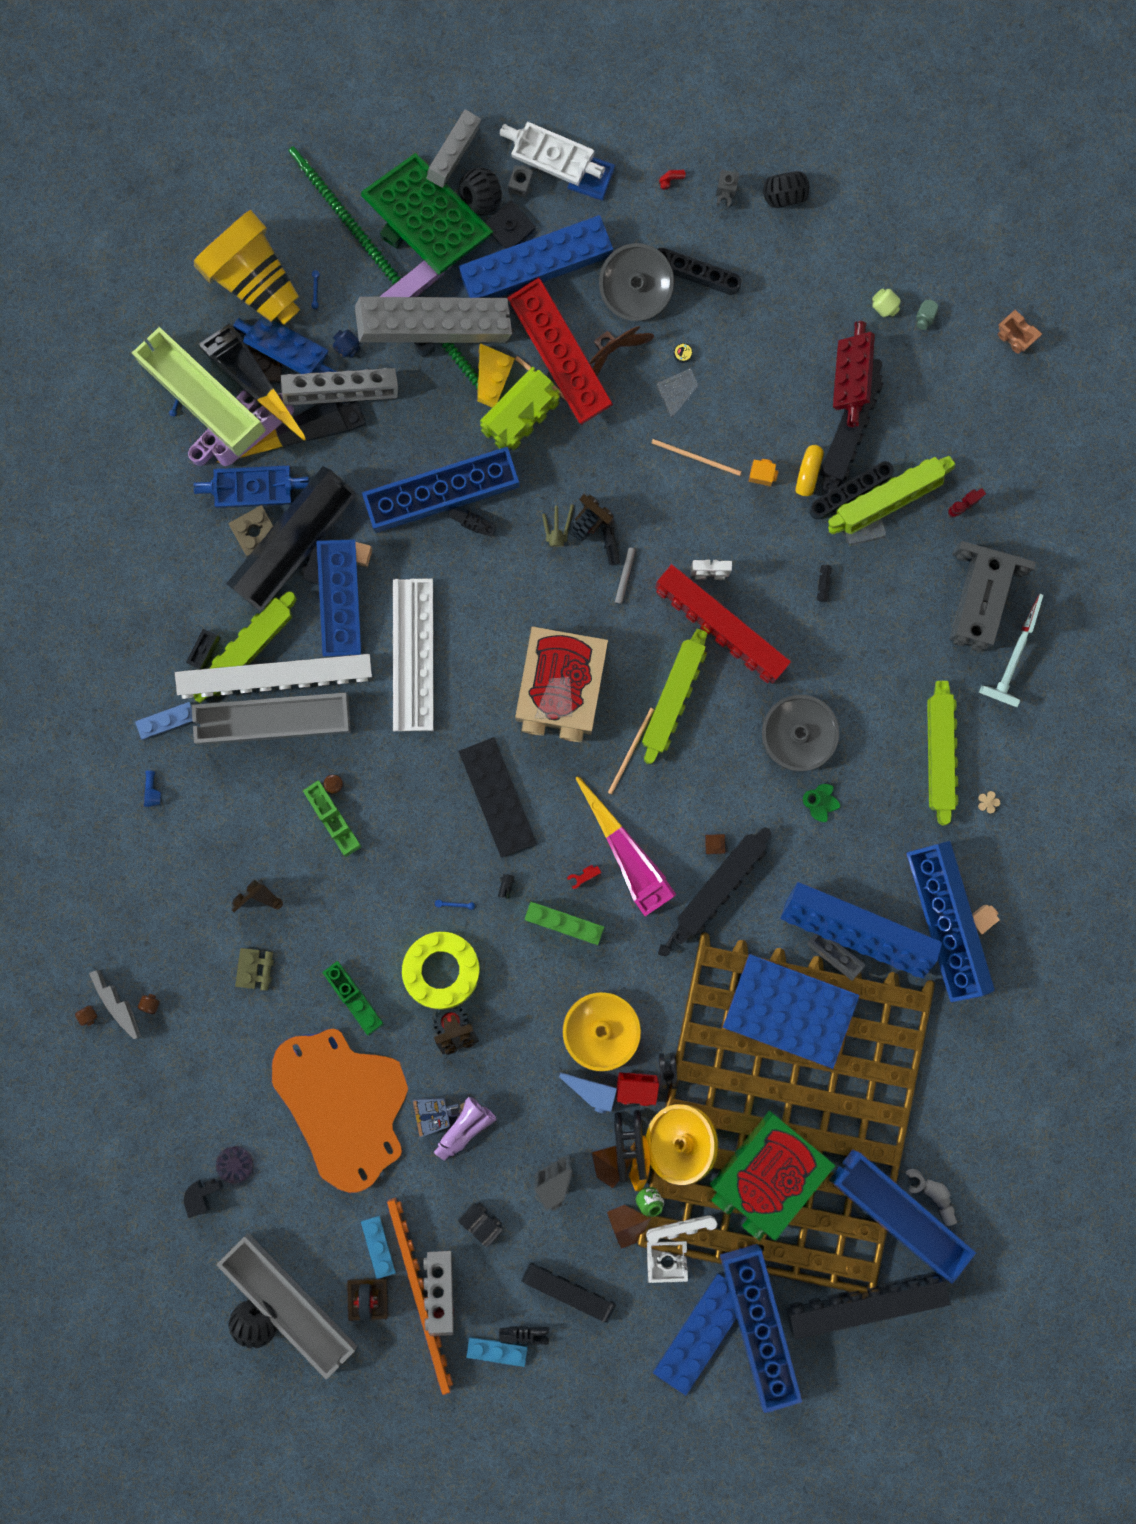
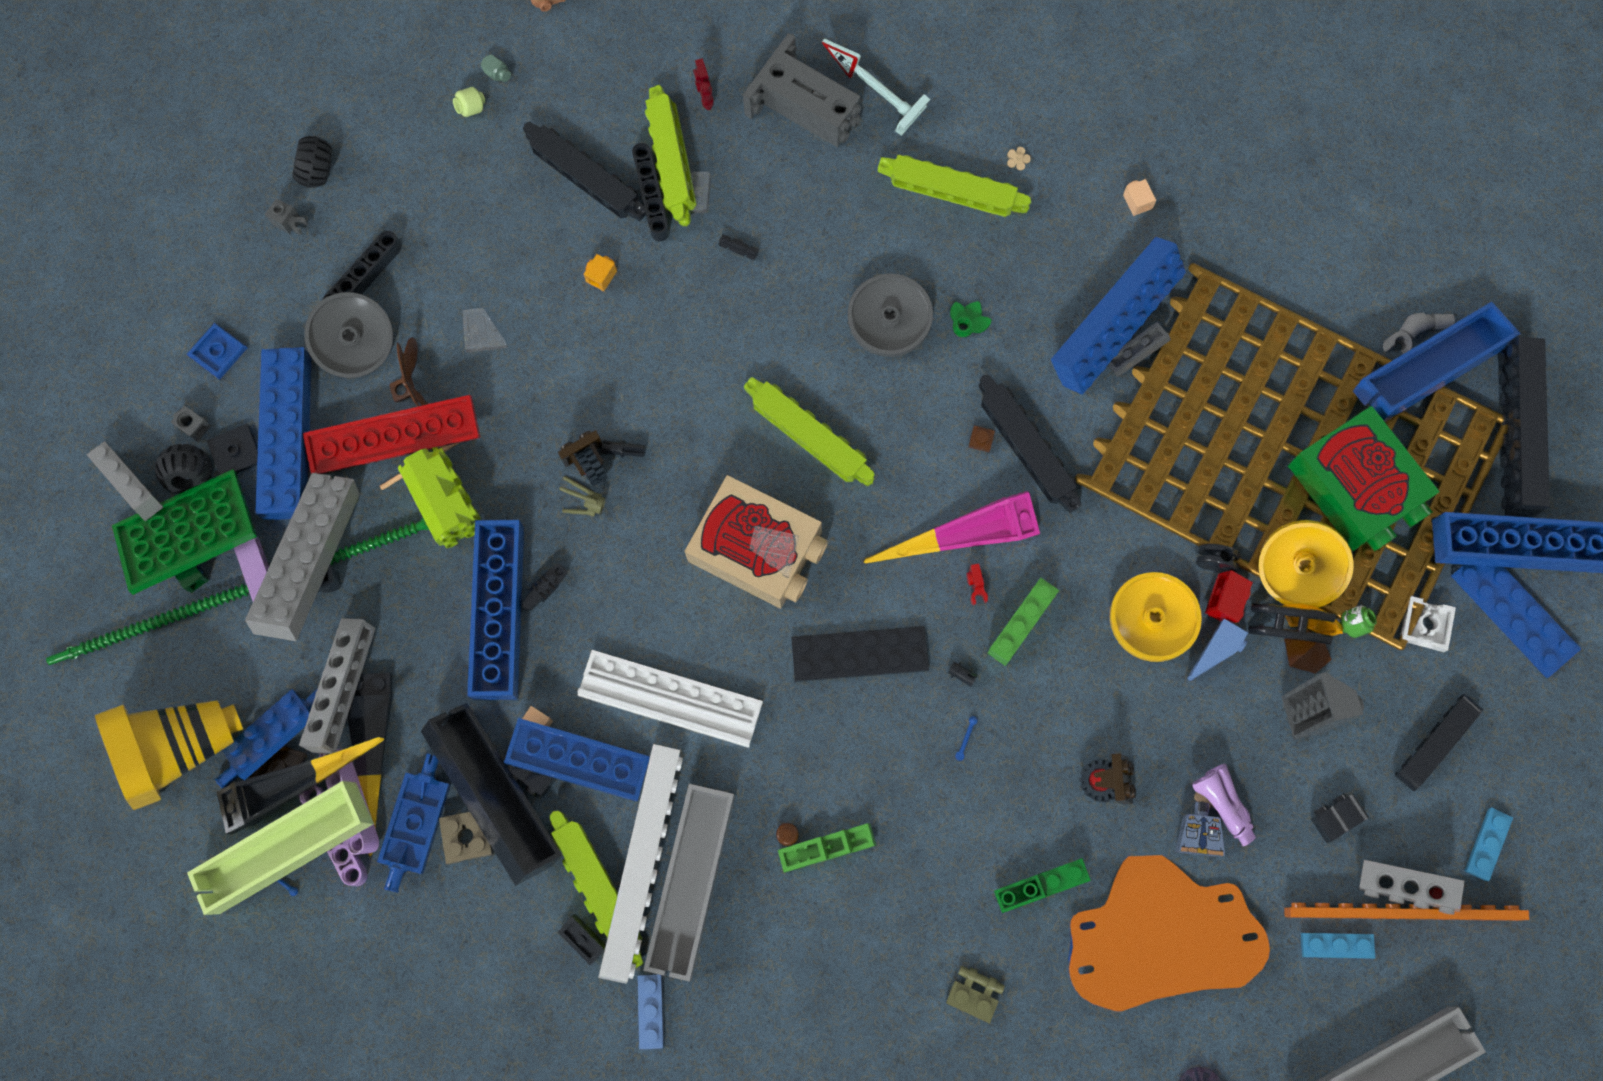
camera: 65 degrees left, 10 degrees down
(152, 796) = (735, 1055): blue bar -> none
(258, 892) = (885, 961): dark brown plate -> none
(315, 274) = (201, 678): blue hinge -> none
(346, 343) = (292, 665): dark blue head -> none
(367, 1299) = (1397, 976): dark brown plate -> none
(460, 989) = (1070, 783): neon yellow plate -> none
(493, 373) = (389, 515): yellow wing -> none
(524, 1335) = (1477, 806): black hinge -> none
(552, 153) = (174, 381): white plate -> none
(625, 575) = (660, 445): light grey bar -> none
(627, 1224) = (1376, 654): reddish brown slope -> none
(630, 752) = (853, 496): light nougat axle -> none
(665, 950) = (1082, 523): black hand -> none
(669, 176) = (249, 270): red arm -> none
(683, 353) = (443, 314): tile -> none
(689, 1226) = (1396, 595): white plate -> none
(696, 457) = (559, 335): light nougat axle -> none
(718, 569) = (683, 354): white brick -> none
(721, 624) = (748, 357): red brick -> none
(791, 1011) = (1186, 411): blue plate -> none
(809, 470) = (615, 224): yellow cylinder -> none
(854, 372) = (529, 149): dark red plate -> none
(950, 921) = (1134, 224): blue brick -> none

